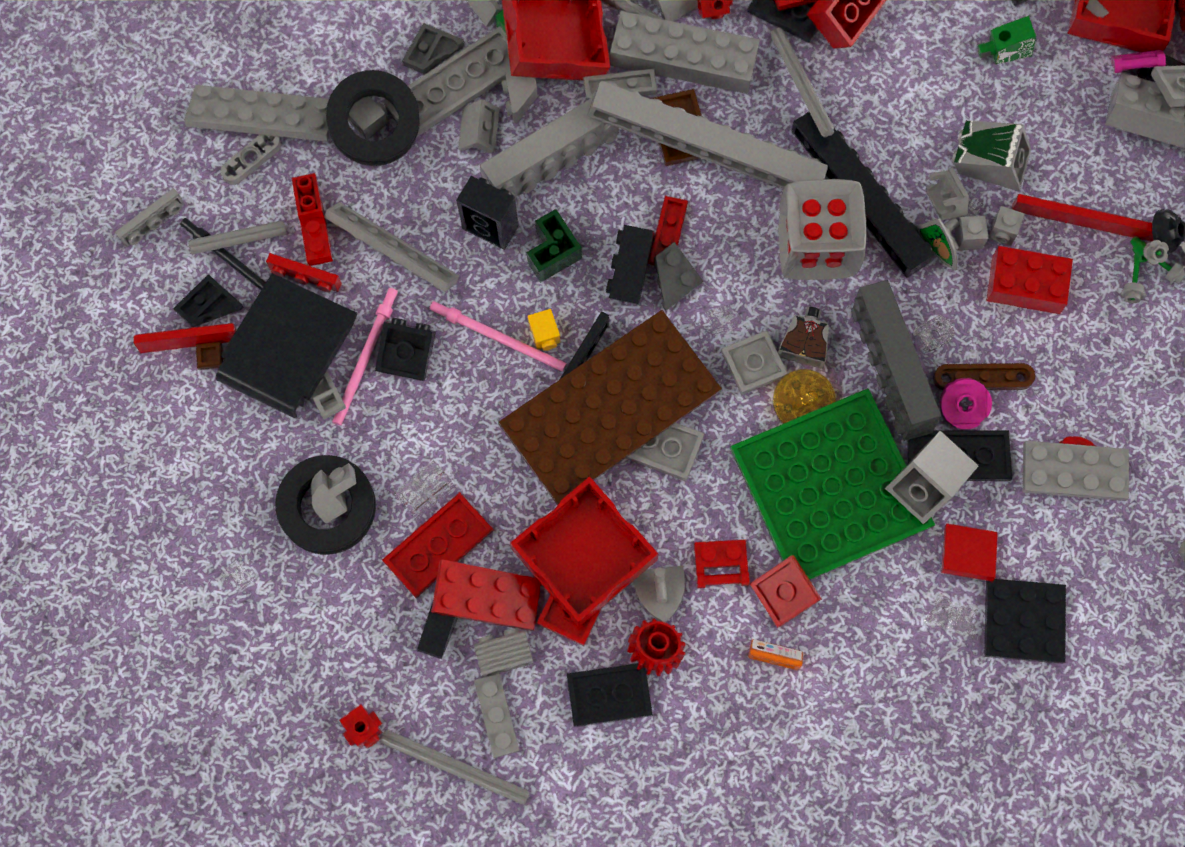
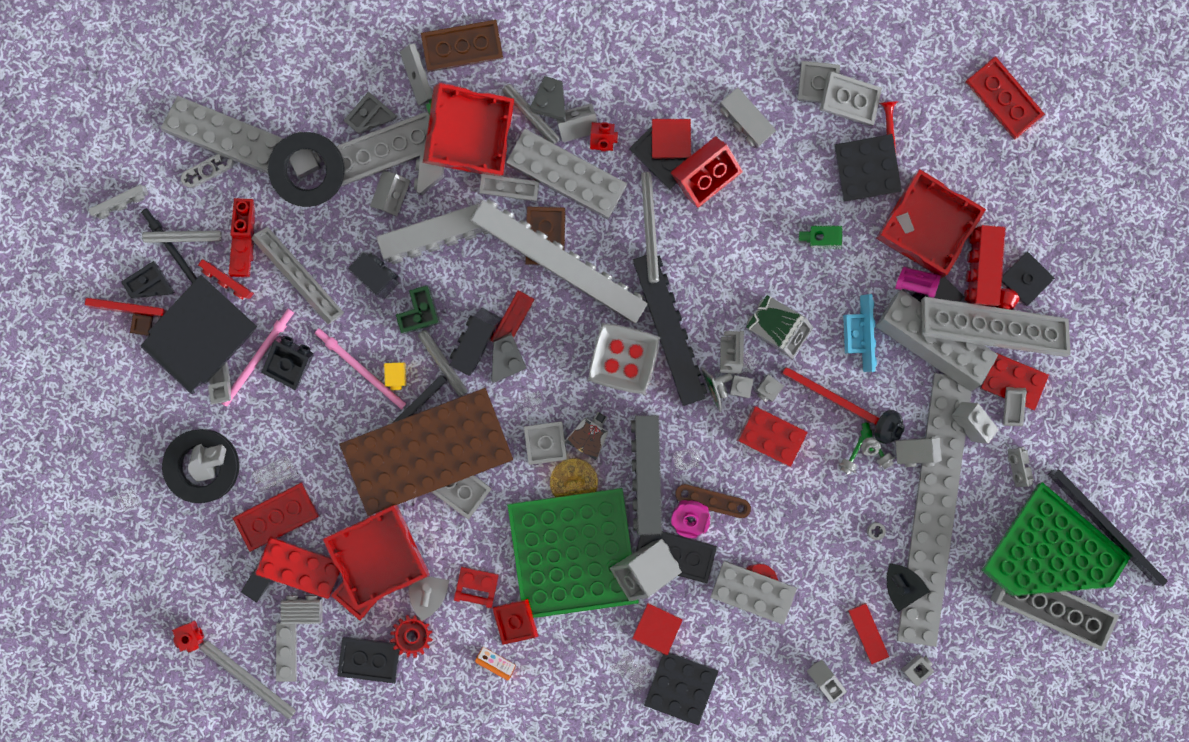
camera: 15 degrees right, 15 degrees up
(596, 301) = (442, 363): none -> light grey axle
(1092, 138) = (860, 333): none -> medium azure bracket

